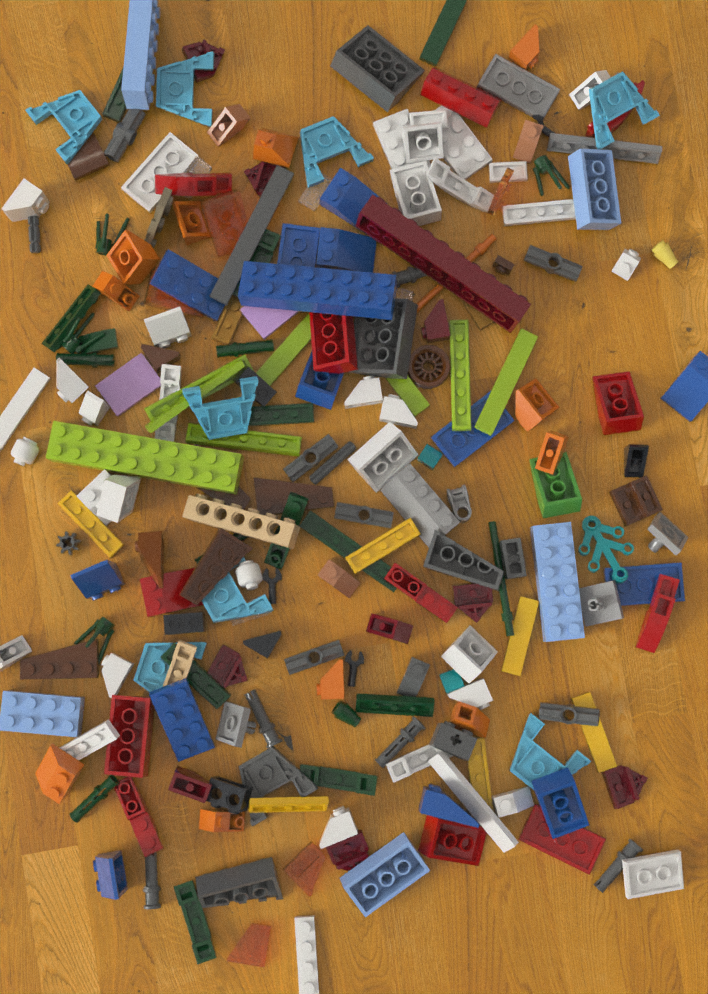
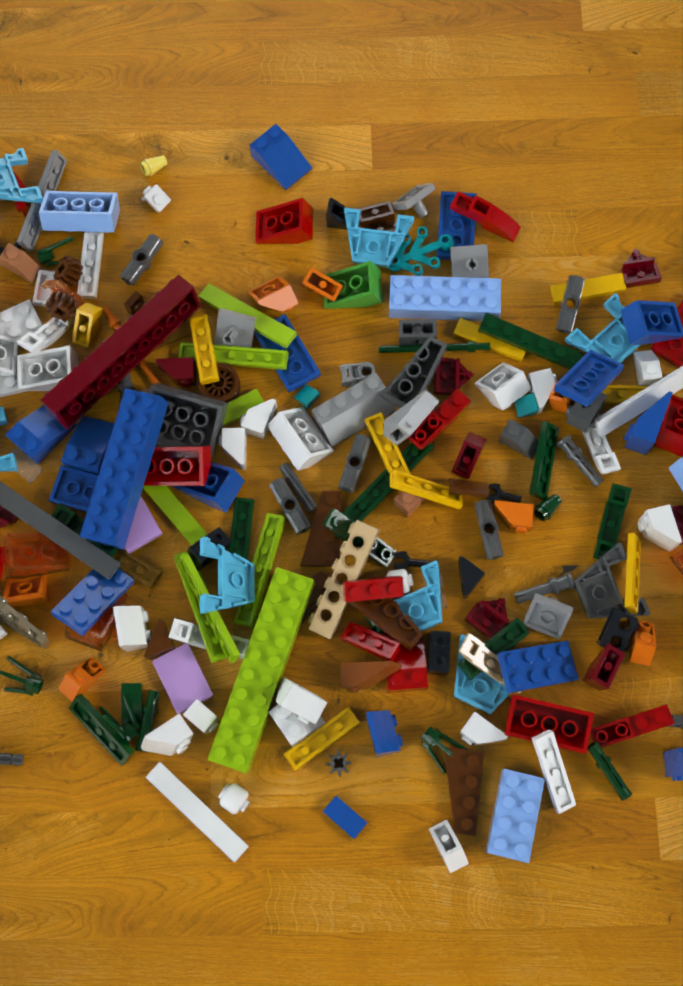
camera: 75 degrees left, 10 degrees down
(22, 556) = (345, 817): none -> blue tile
(58, 773) = (580, 805): orange slope -> none
(132, 258) = (51, 653): orange slope -> none
(185, 556) = (370, 641): none -> red plate
(233, 550) = (373, 588): none -> red plate
(244, 348) = (167, 555): dark green pin -> none
(344, 589) = (424, 489): none -> yellow tile
(352, 631) = (468, 487): none -> reddish brown slope
(411, 560) = (408, 418): none -> light grey slope
(461, 345) = (204, 349): none -> yellow tile
(473, 222) = (86, 324): none -> yellow slope
(483, 193) = (61, 306): none -> reddish brown gear
(483, 740) = (588, 378): none -> blue plate
(486, 371) = (234, 329): none -> light grey tile
(520, 680) = (529, 341): none -> dark green plate
(526, 191) = (68, 270): none -> reddish brown gear
(603, 500) = (375, 244): none -> medium azure wing

